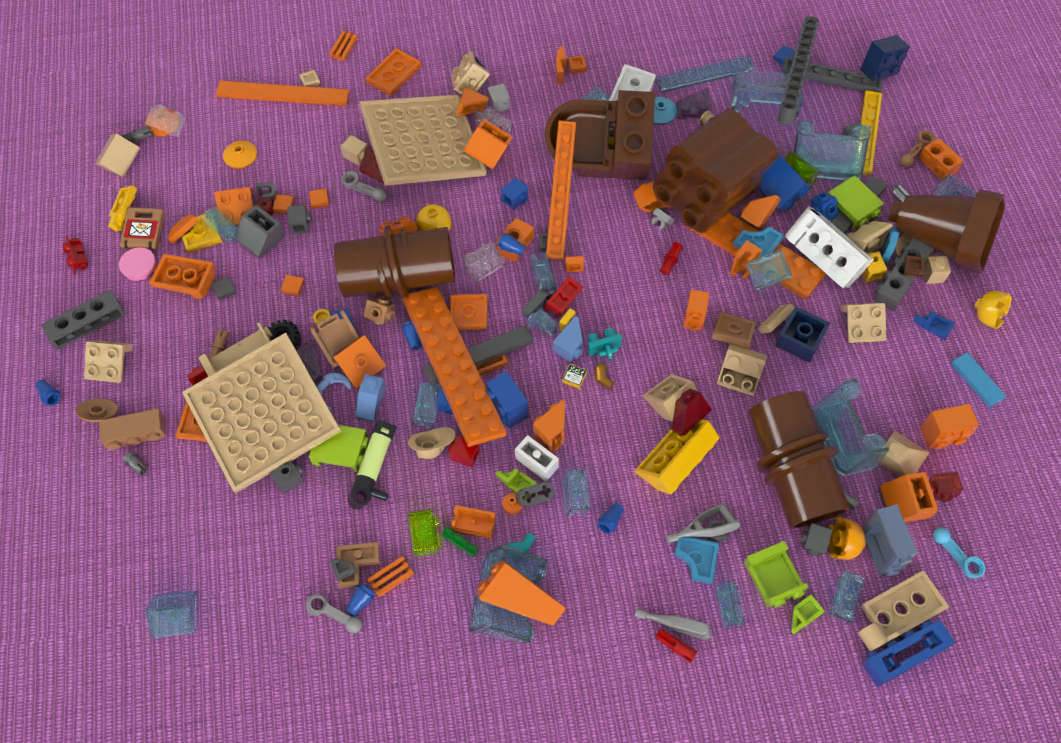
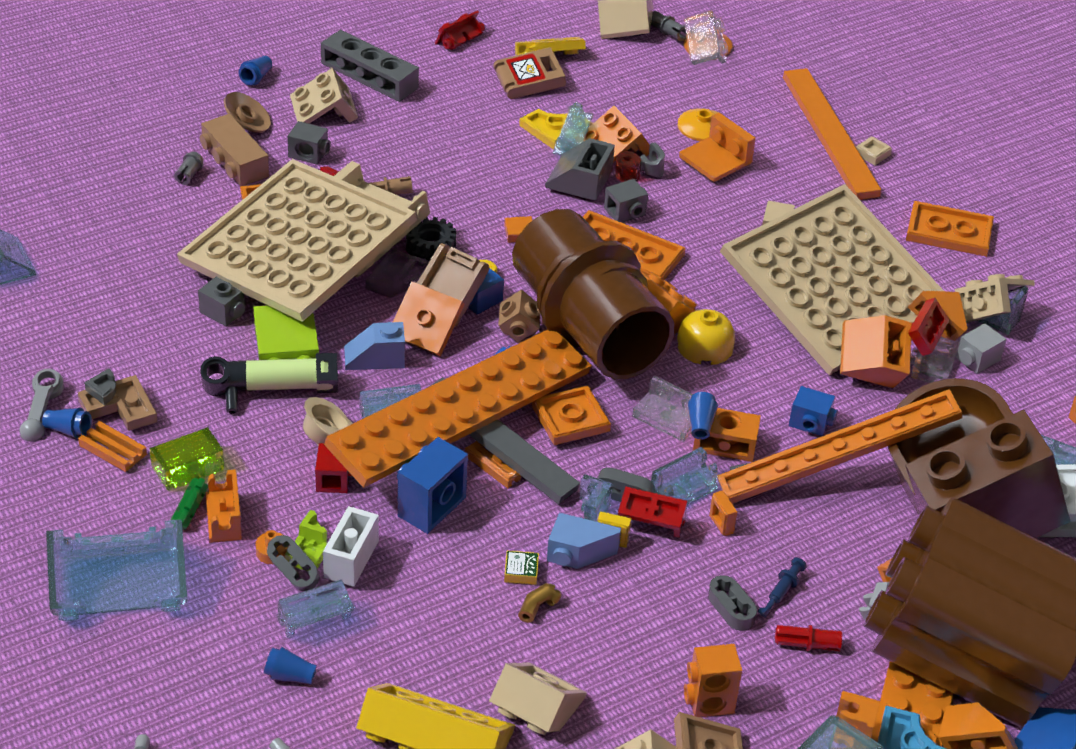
camera: 65 degrees right, 20 degrees down
(137, 264) = (477, 86): bright pink tile -> none
(149, 380) = (308, 142): none -> dark grey brick
(182, 227) = (547, 103): orange tile -> none
(184, 275) = (476, 126): orange slope -> none
(223, 288) = (480, 169): dark grey tile -> none
(275, 153) = (723, 151): none -> orange bracket
(282, 202) = (649, 182): orange tile -> none
(319, 198) = (676, 214): orange tile -> none
(320, 242) = (653, 252): none -> orange tile
(333, 378) = (363, 298): light blue piece -> none
(340, 45) = (958, 165): orange tile -> none
(378, 194) = (721, 233): light grey piece -> none
(485, 112) = (928, 326): none -> red tile
(518, 594) = (116, 572): orange slope -> none
(523, 545) = (204, 574): teal arm -> none
(549, 428) = (409, 548): orange slope -> none
(604, 346) = (591, 588): teal hips -> none
(628, 252) = (787, 580): none -> dark blue piece
(634, 284) = (728, 605): none -> dark grey beam
(689, 411) = (514, 708): dark red slope -> none

